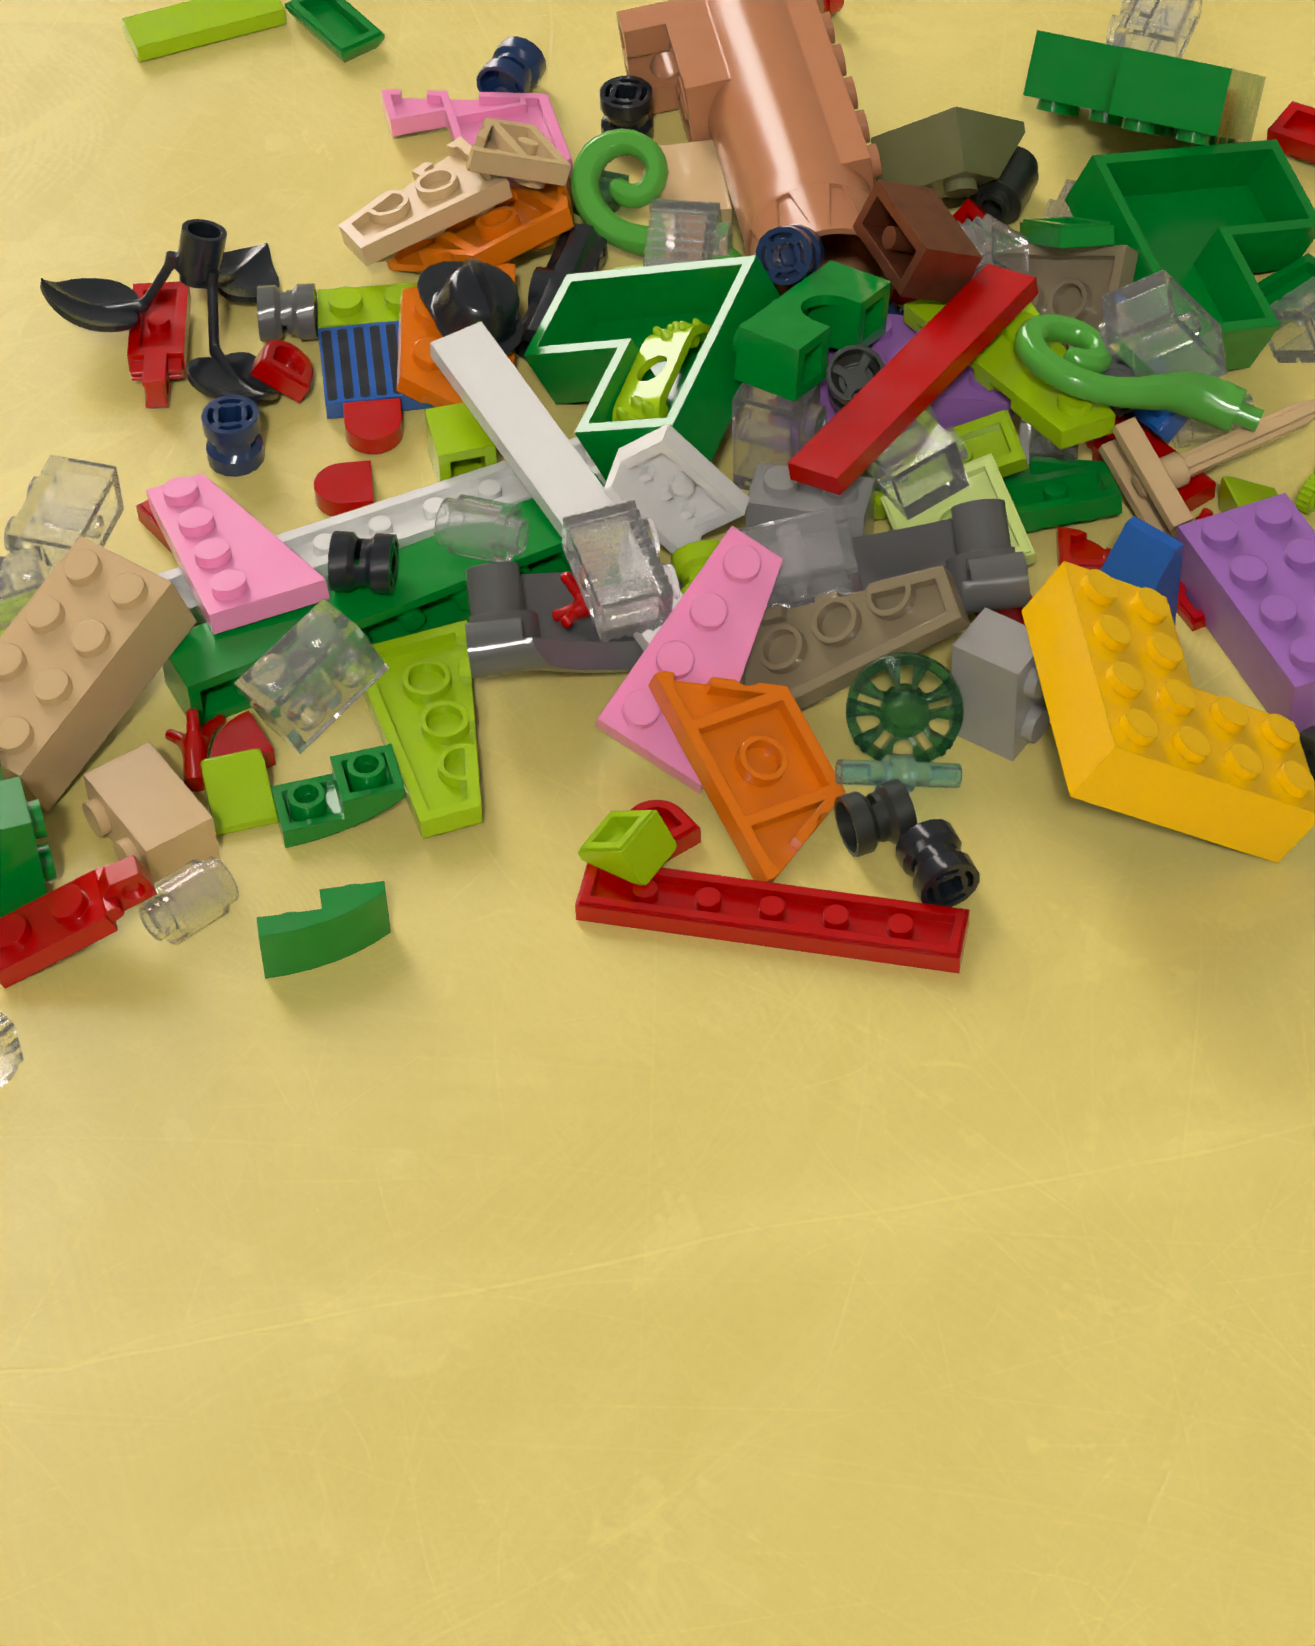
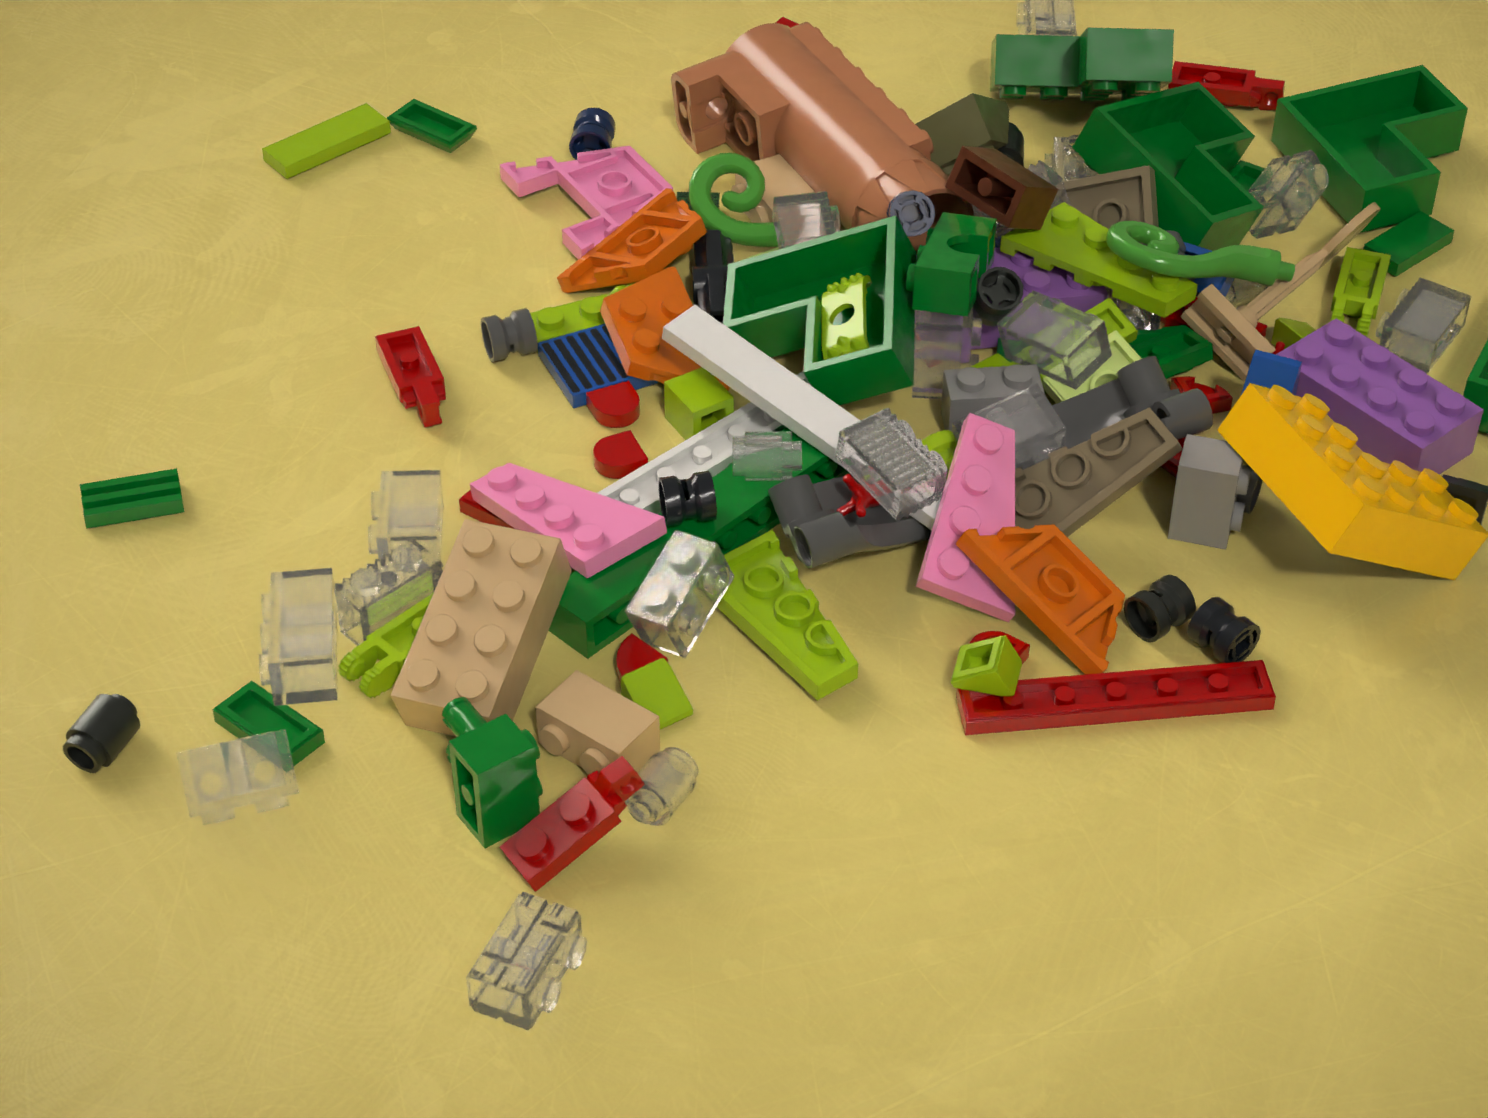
camera: 20 degrees left, 5 degrees down
(195, 746) = (599, 667): red bar -> none
(201, 264) = (440, 309): black plant -> none
(233, 435) = (513, 431): dark blue wheel -> none
(284, 369) = (527, 376): red tile -> none
(305, 940) = (771, 795): green slope -> none
(356, 791) = (747, 677): green slope -> none
(425, 208) = (585, 236): tan wing -> none
(471, 293) = (661, 292): black piece -> none
(517, 153) = (644, 187): tan wing -> none
(627, 105) = (695, 144): black wheel -> none
(674, 487) = (903, 387): white bracket -> none
(899, 767) = (1155, 569): clear light blue bar -> none
(904, 707) = (1145, 525): clear green wheel -> none
(912, 379) = (1047, 286): red tile -> none
(1068, 232) = (1096, 165): green tile -> none
(1161, 329) = (1207, 216): clear brick -> none

